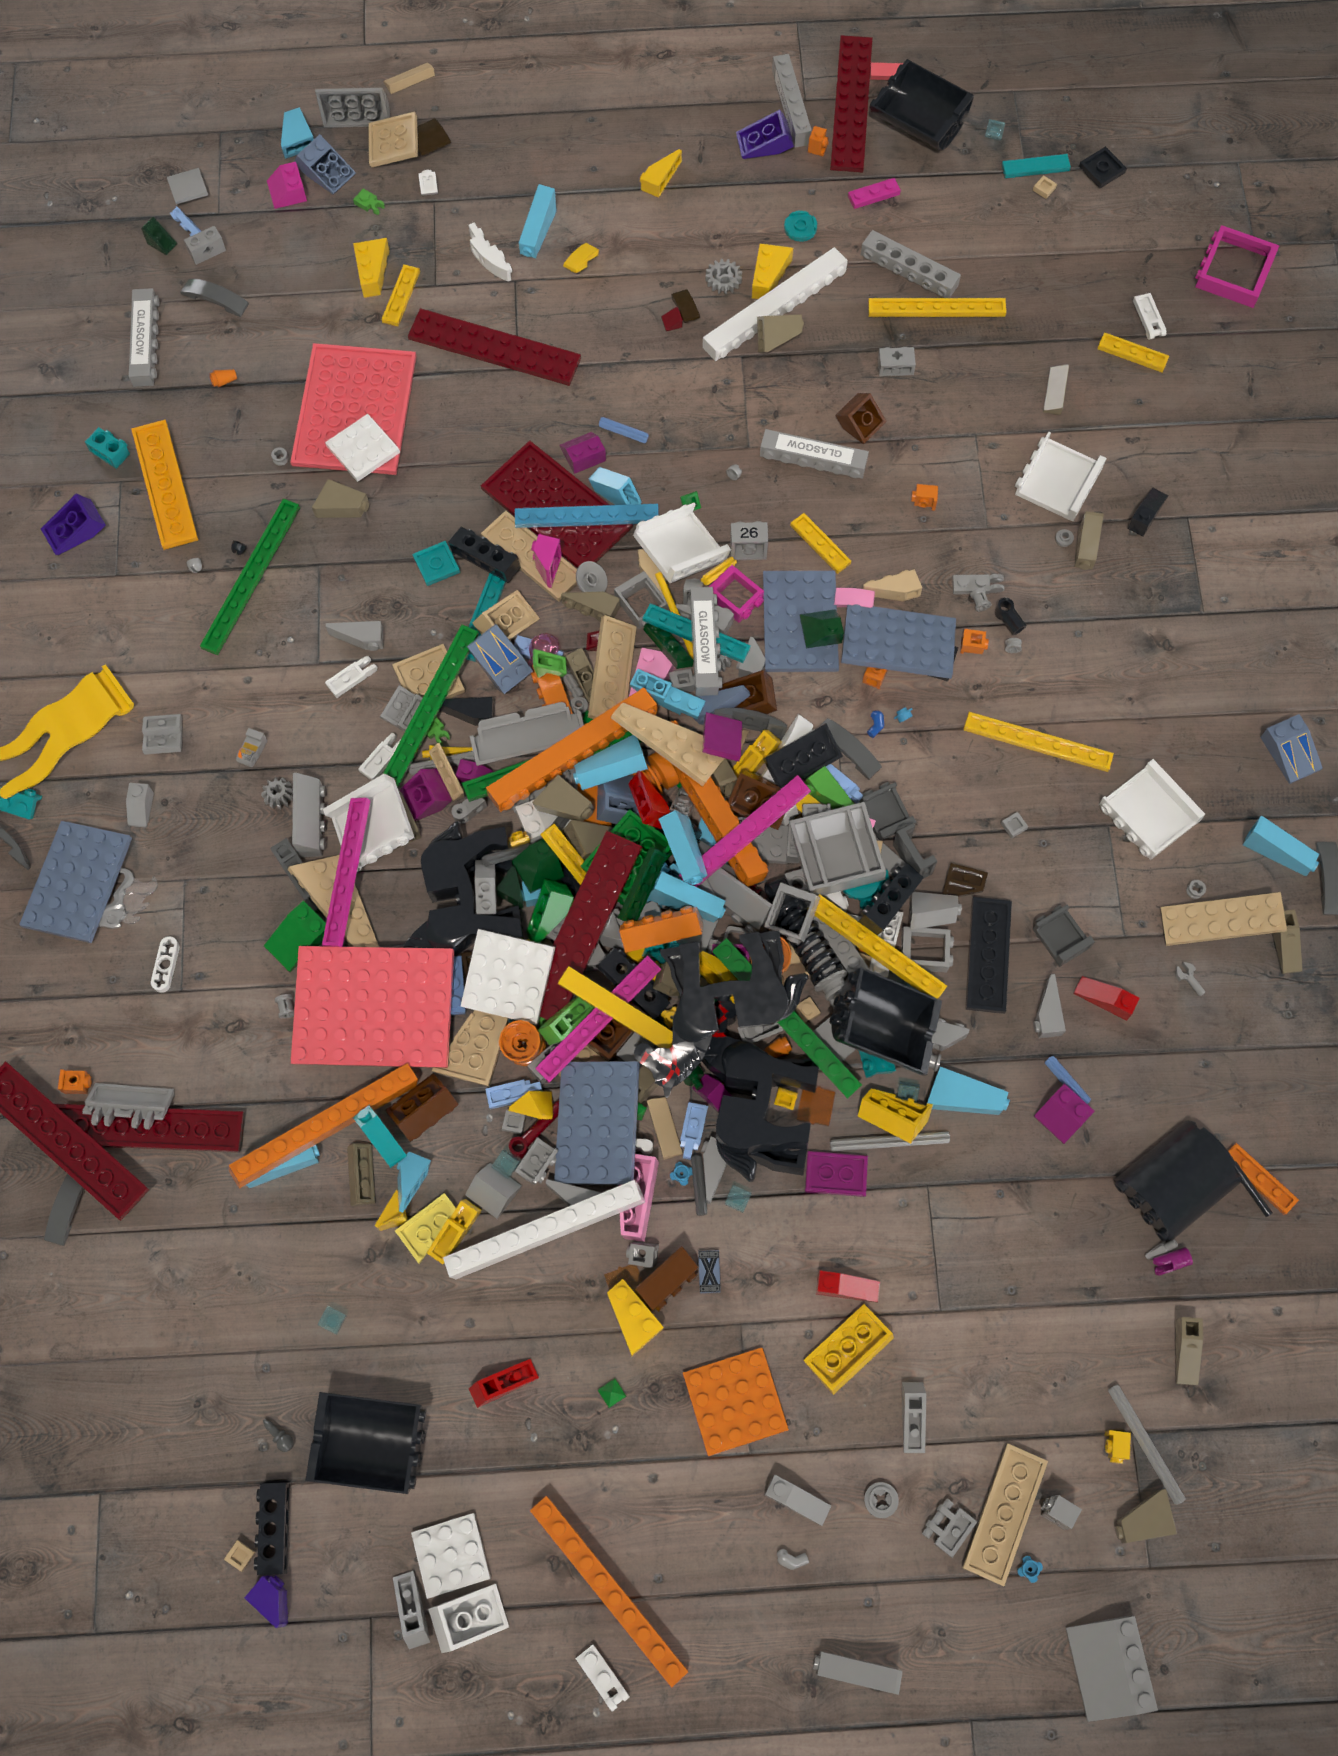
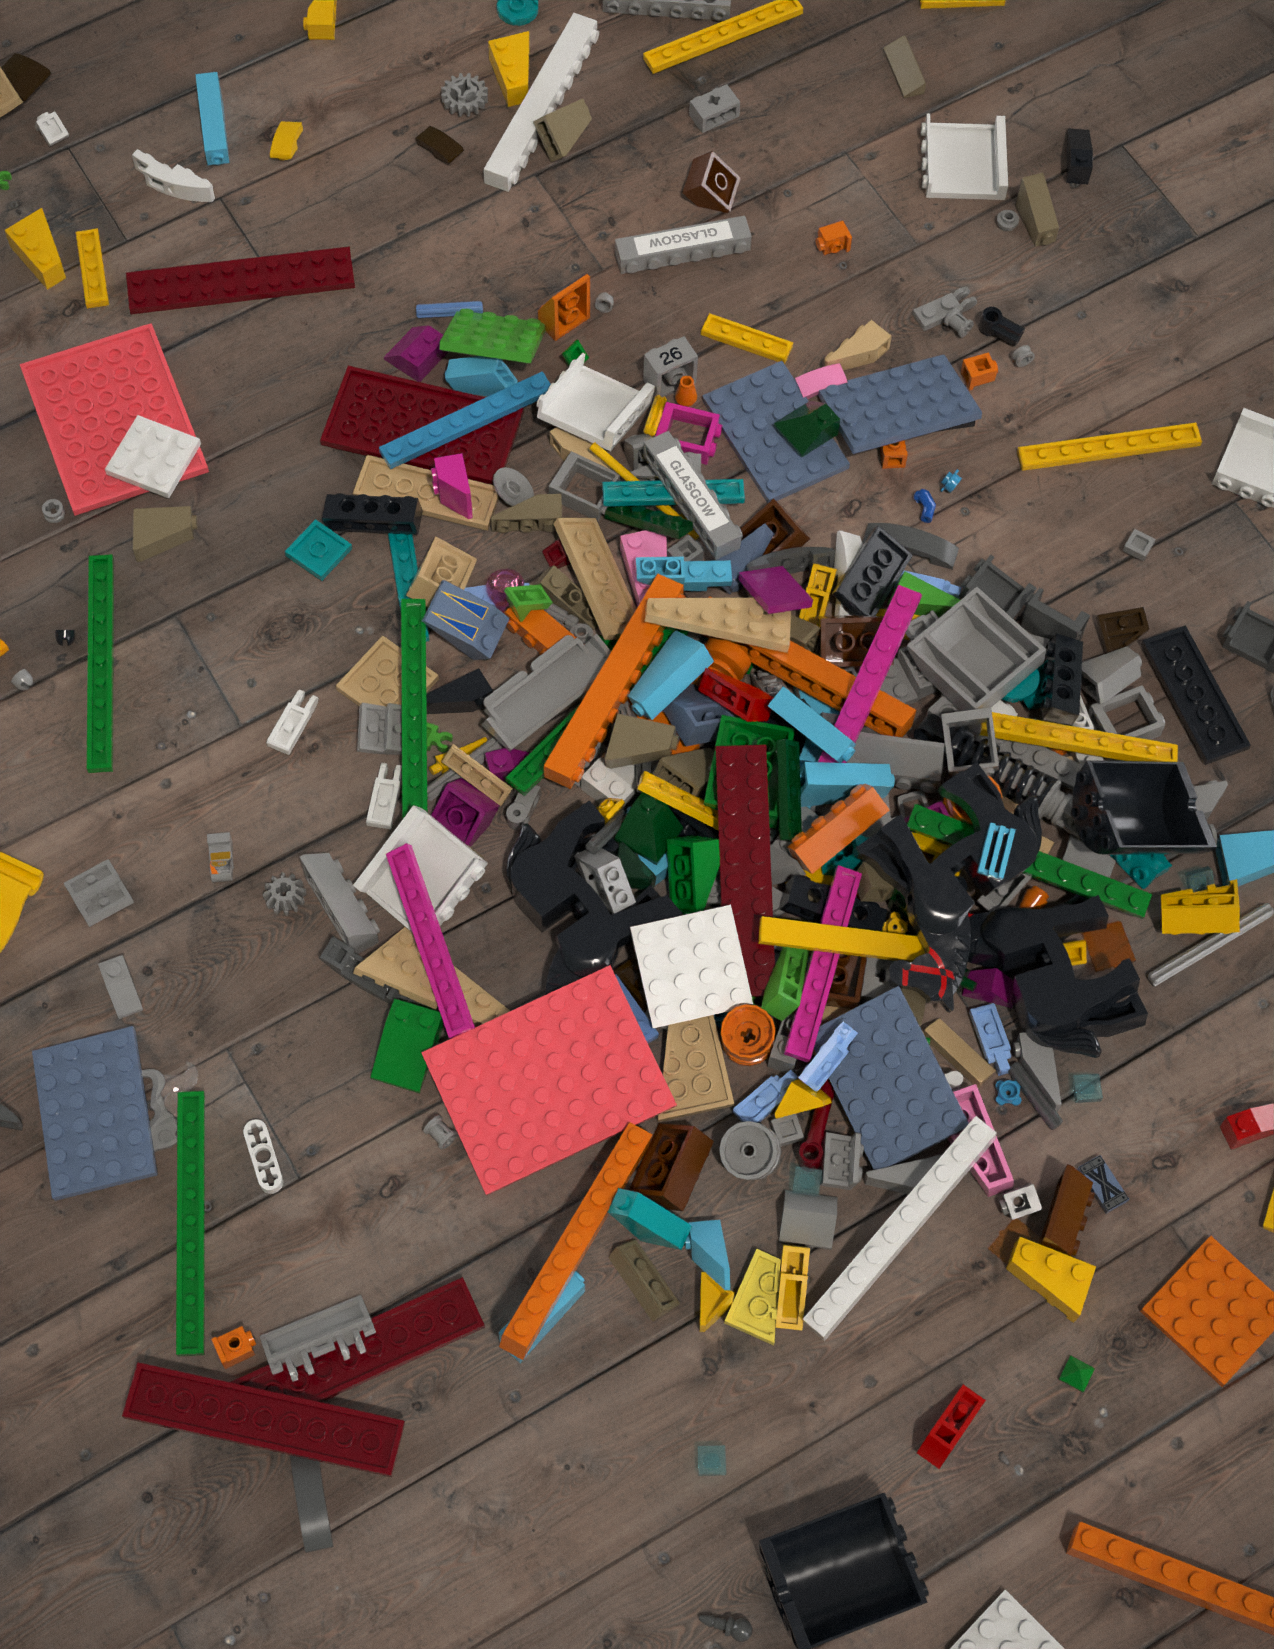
camera: 30 degrees left, 5 degrees down
(93, 986) = (190, 1224): none -> green plate
(365, 634) = (275, 669): light grey slope -> none
(477, 1124) = (765, 1156): none -> light grey wheel
(562, 1087) = (828, 1057): none -> light blue hinge
(637, 463) = (493, 336): none -> bright green plate
(672, 319) = (433, 165): dark red slope -> none
(701, 465) = (566, 309): none -> orange slope
(746, 994) = (1001, 831): none -> medium azure tile
(752, 563) = (686, 392): none -> orange cone
(754, 661) = (755, 497): light grey slope -> none
(836, 1174) = (1178, 1008): magenta tile -> none

